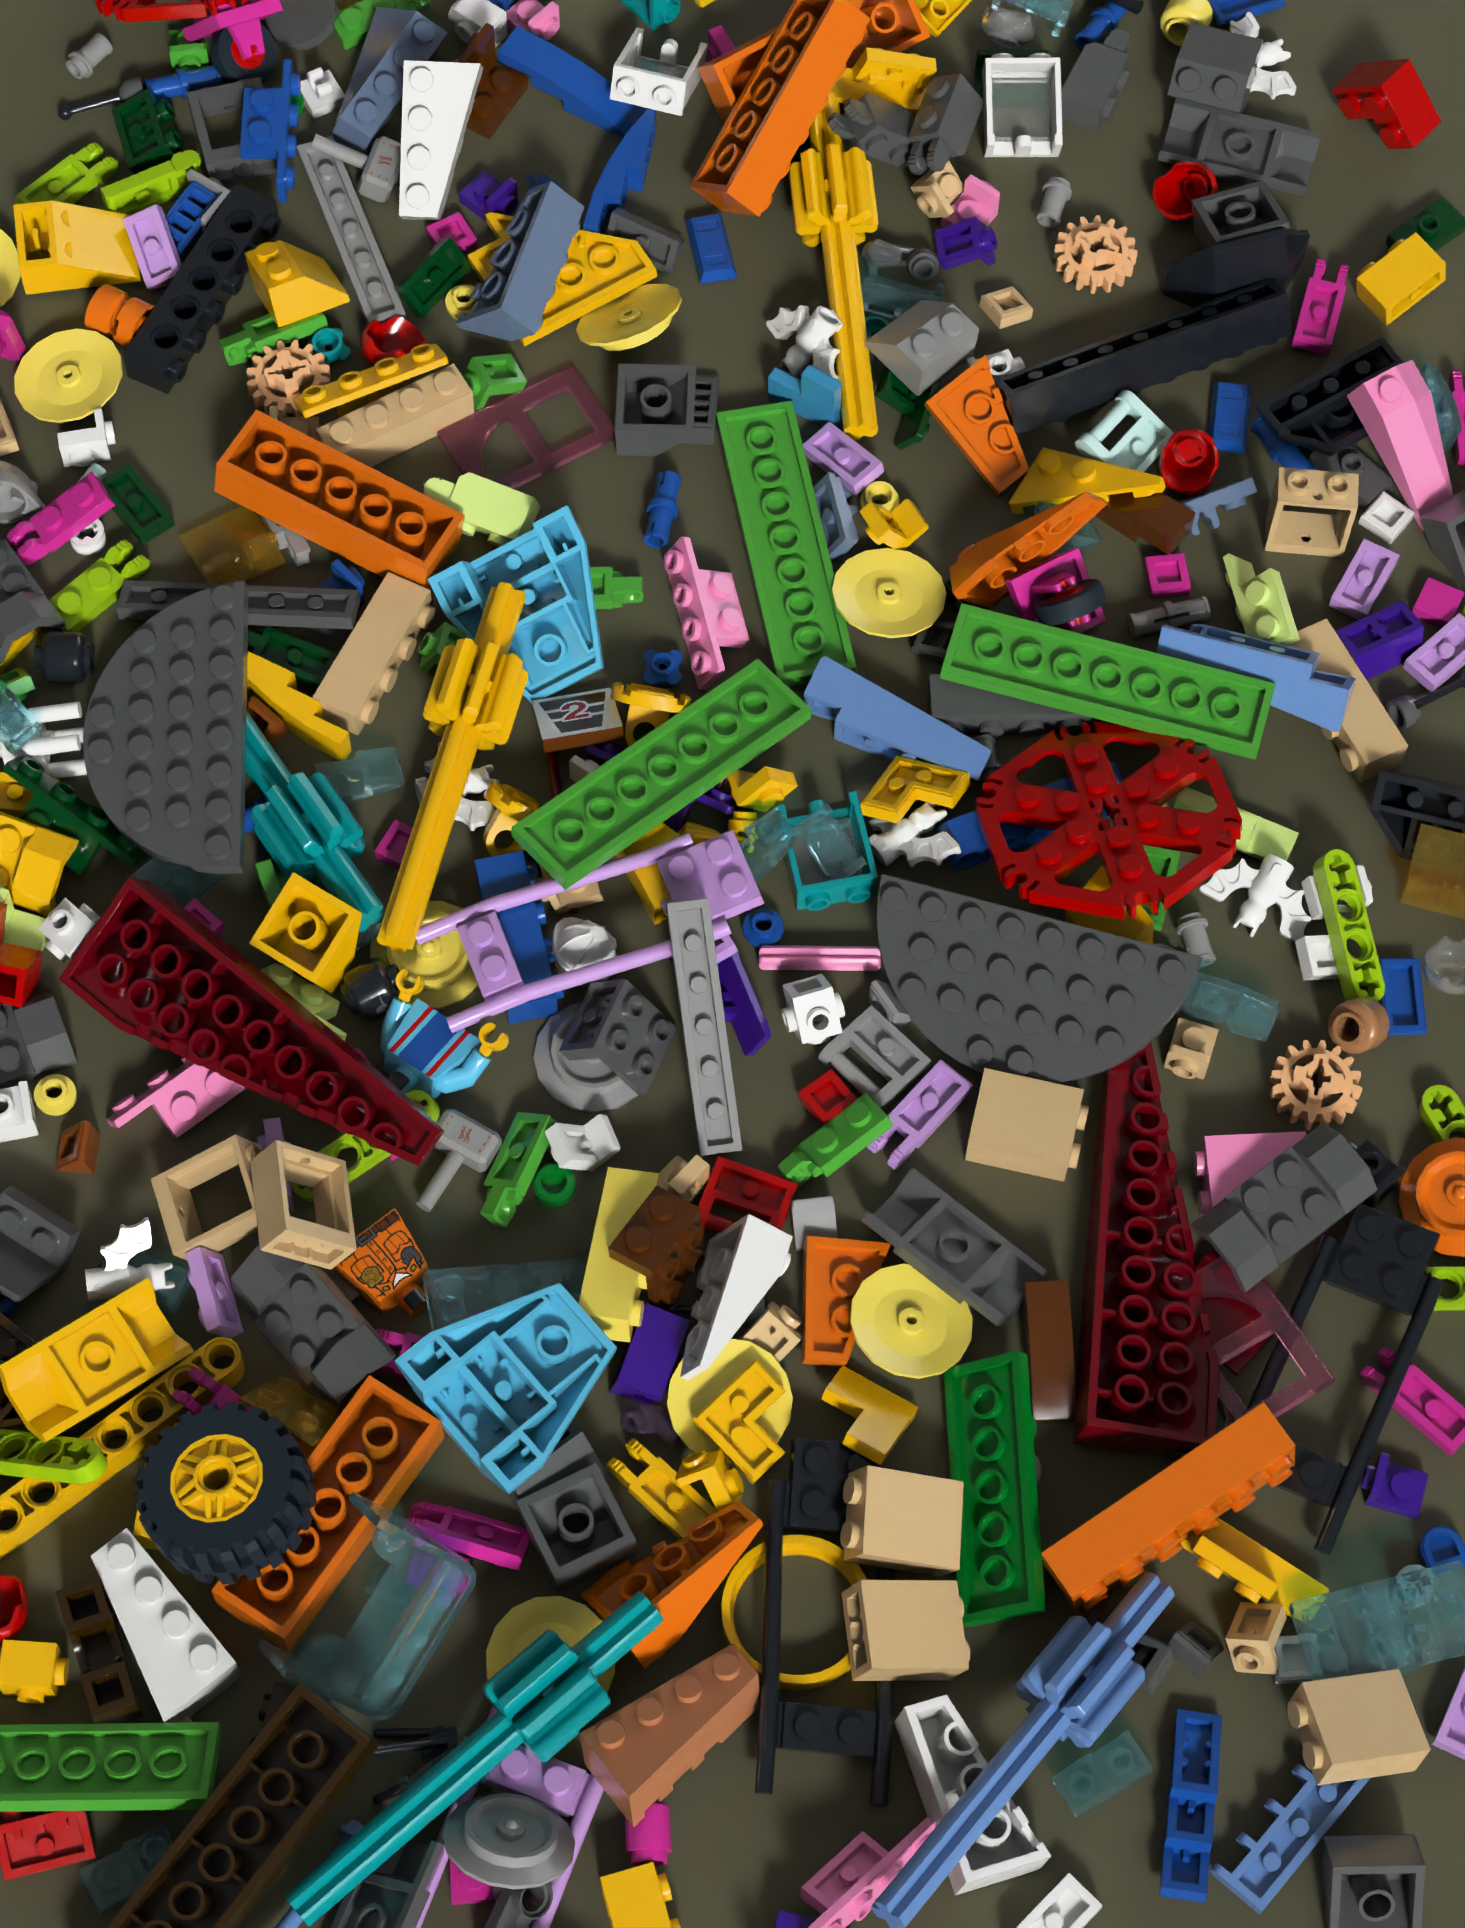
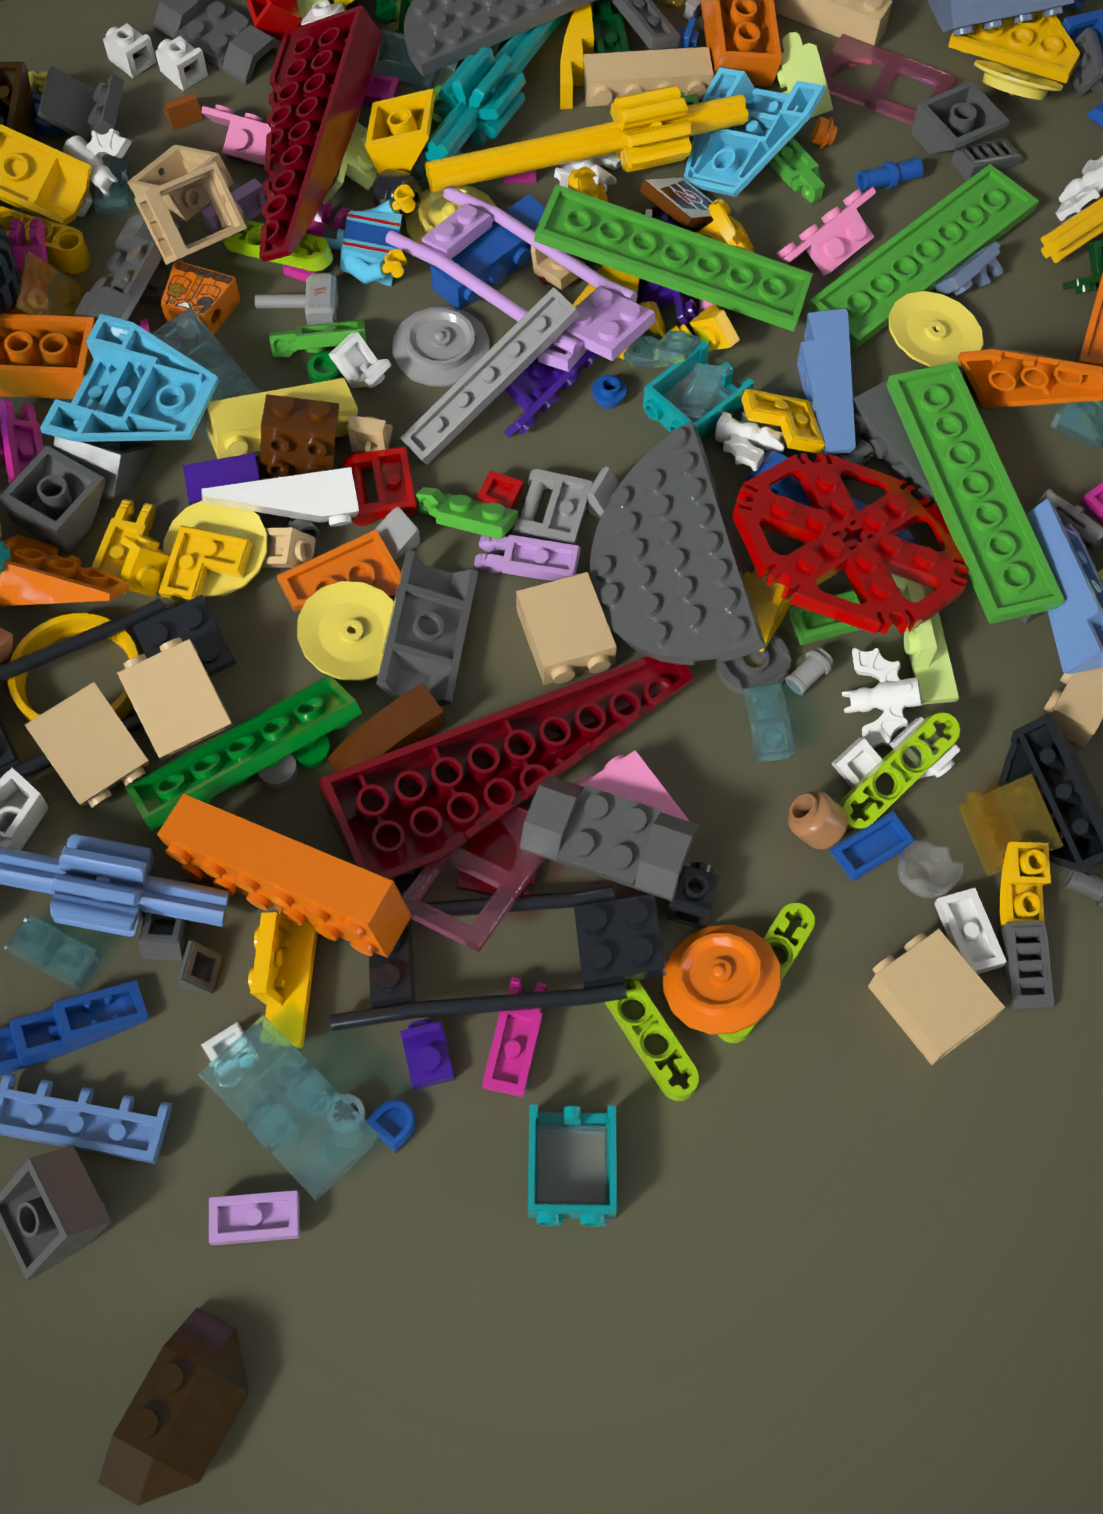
camera: 60 degrees right, 0 degrees up
(60, 1104) = (212, 81): light yellow plate -> none
(214, 1292) = (108, 223): lavender plate -> none
(267, 721) = (550, 53): dark orange slope -> none
(365, 775) = (549, 115): clear light blue slope -> none
(493, 376) = (907, 36): bright green bracket -> none
(581, 943) = (517, 286): white piece -> none
(620, 1031) = (454, 341): dark grey bracket -> none
(649, 1419) = (172, 503): clear purple arm -> none
(662, 678) = (766, 236): blue plate -> none
(812, 1009) = (559, 444): white brick -> none
(813, 397) = (1053, 199): dark azure tile -> none
(819, 958) = (608, 432): bright pink axle -> none
(841, 455) = (1020, 252): lavender plate -> none
(879, 1413) = (261, 649): yellow tile -> none
(880, 491) = (1008, 293): light yellow plate -> none
(896, 527) = (989, 307): yellow bracket -> none
(1059, 593) = (1022, 429): dark pink plate -> none
(1191, 1049) = (713, 714): tan bracket -> none
(1254, 1637) = (225, 1004): tan bracket -> none
(1297, 1089) = (735, 829): light nougat gear -> none
(1357, 1727) = (178, 1121): tan brick -> none

